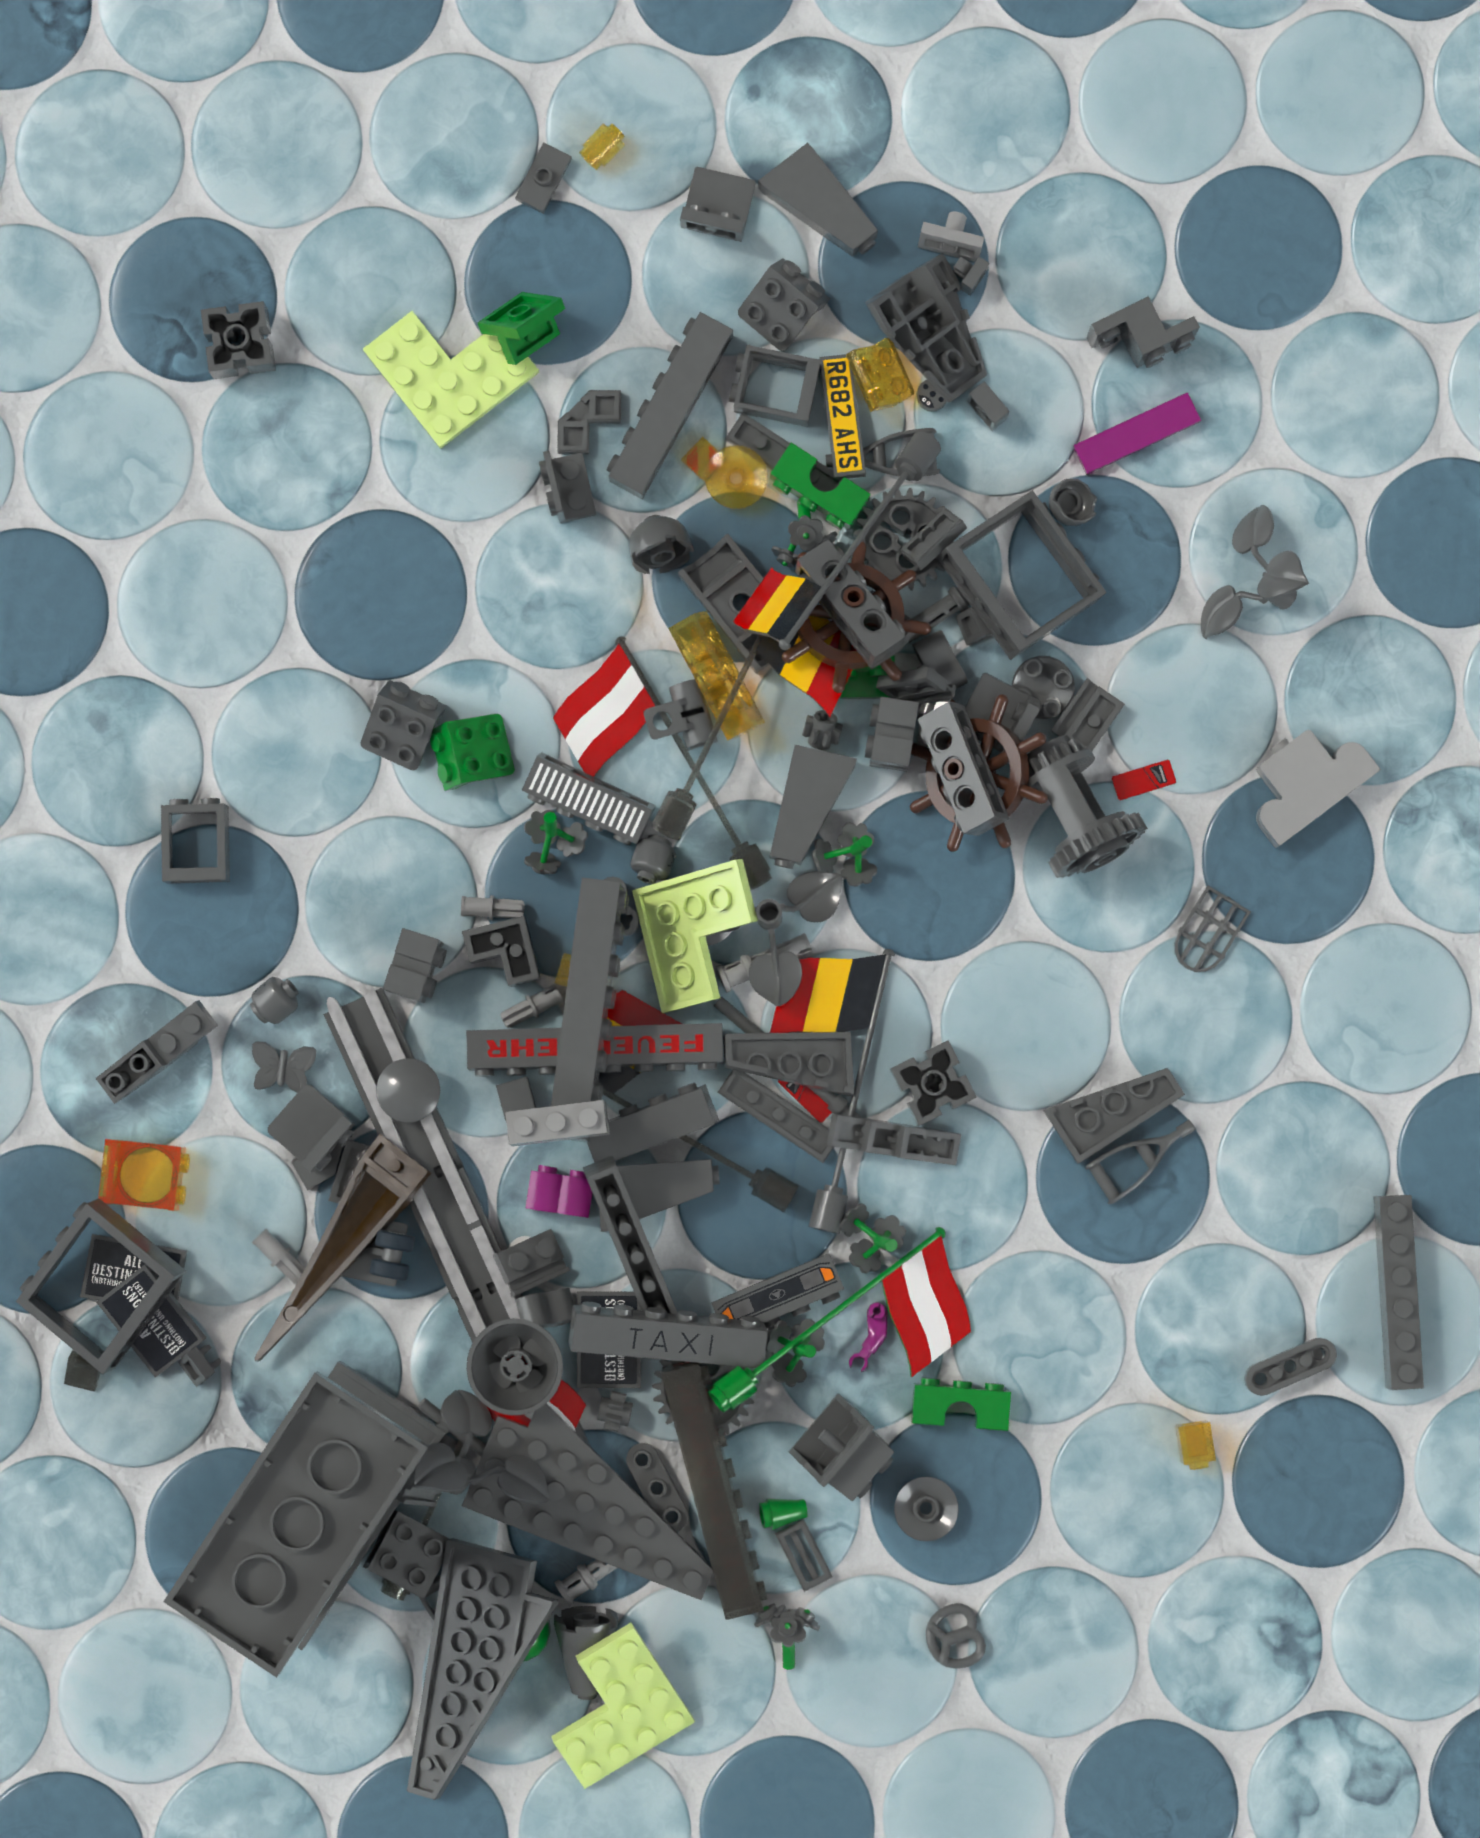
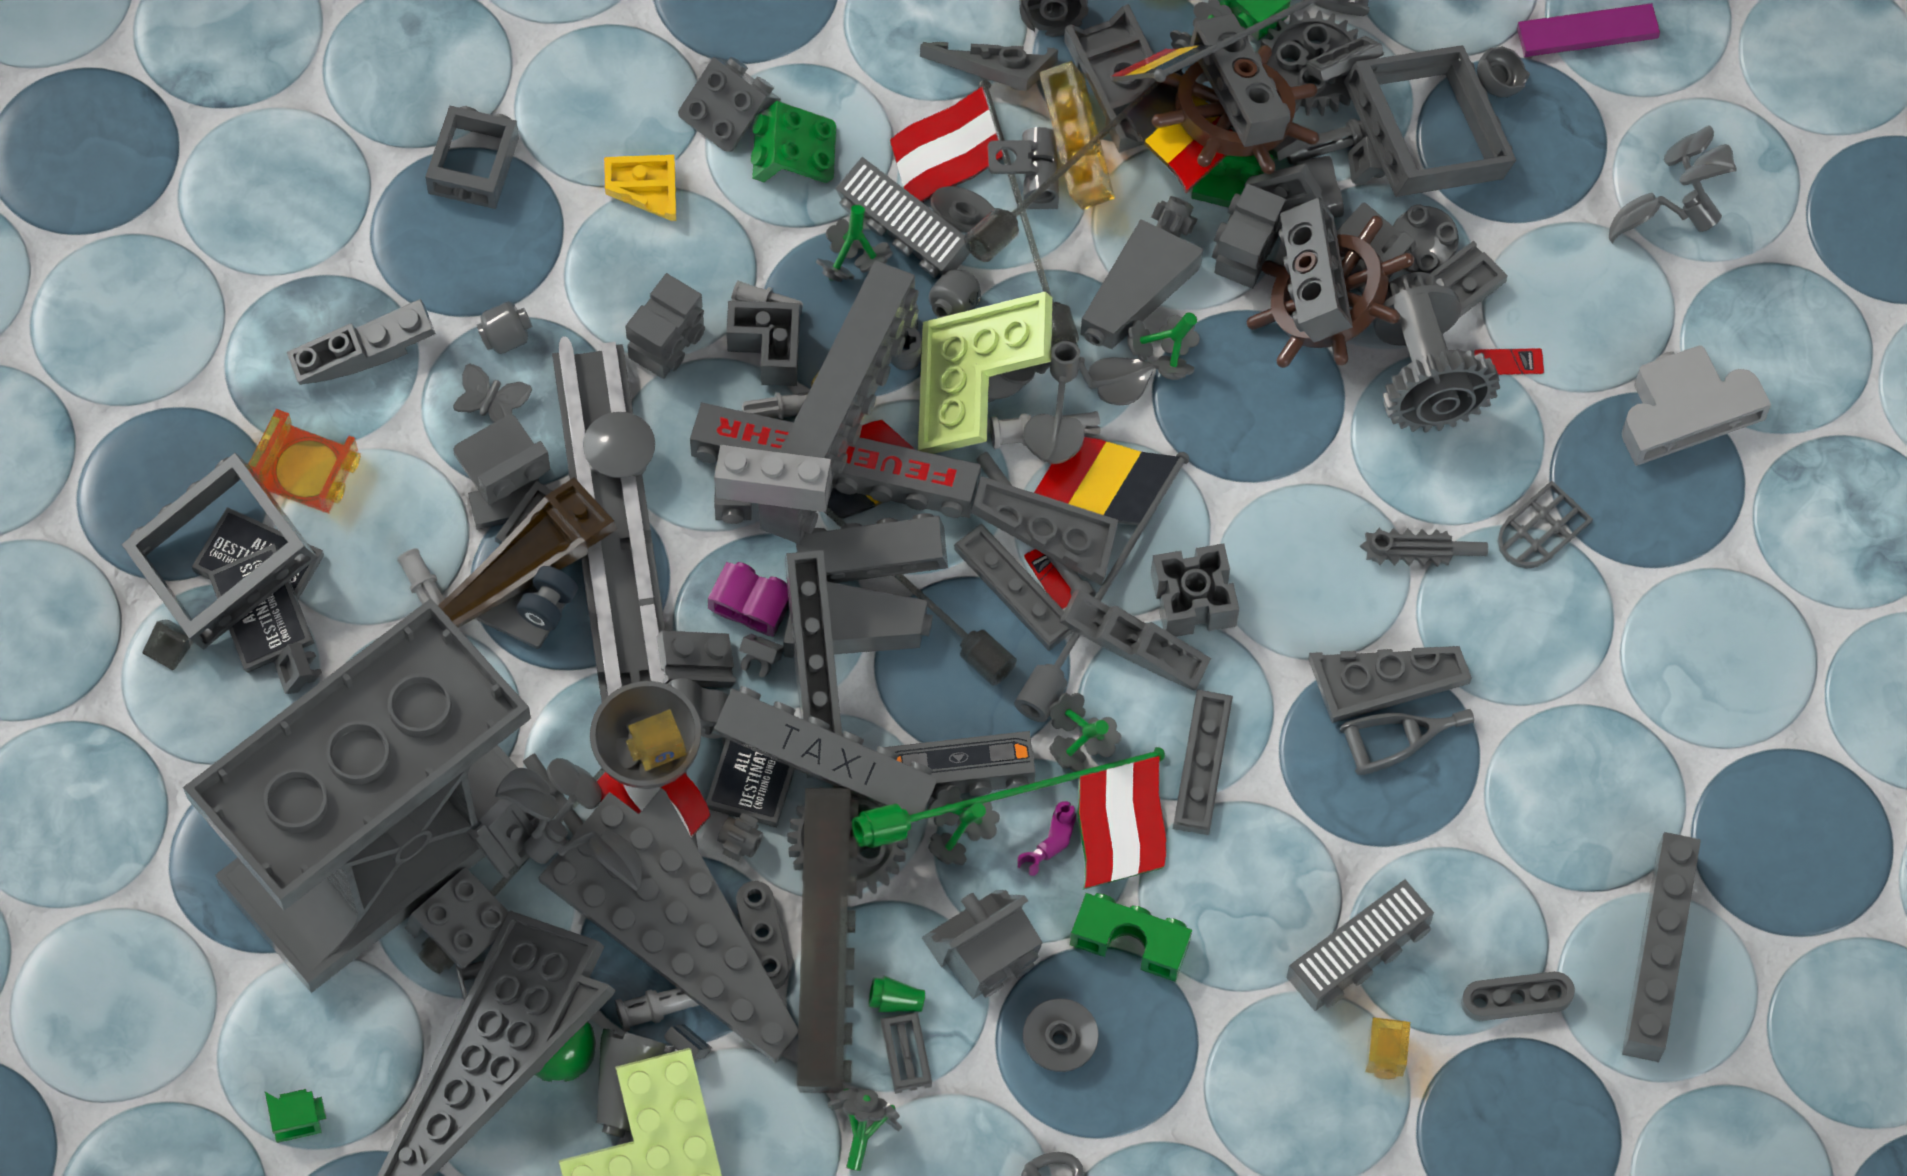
camera: 10 degrees right, 20 degrees down
(324, 1753) = (295, 1114): none -> green window
(351, 824) = (643, 182): none -> yellow wing
(526, 1378) = (655, 740): none -> clear yellow brick
(582, 1237) = (761, 650): none -> dark grey tile
(624, 1601) = (683, 1037): none -> dark grey tile
(630, 619) = (994, 62): none -> dark grey wing
(642, 766) = (960, 207): none -> dark grey dish
(978, 1229) = (1202, 762): none -> dark grey tile
(1113, 981) = (1420, 547): none -> dark grey piece
(1151, 1360) = (1361, 945): none -> dark grey brick

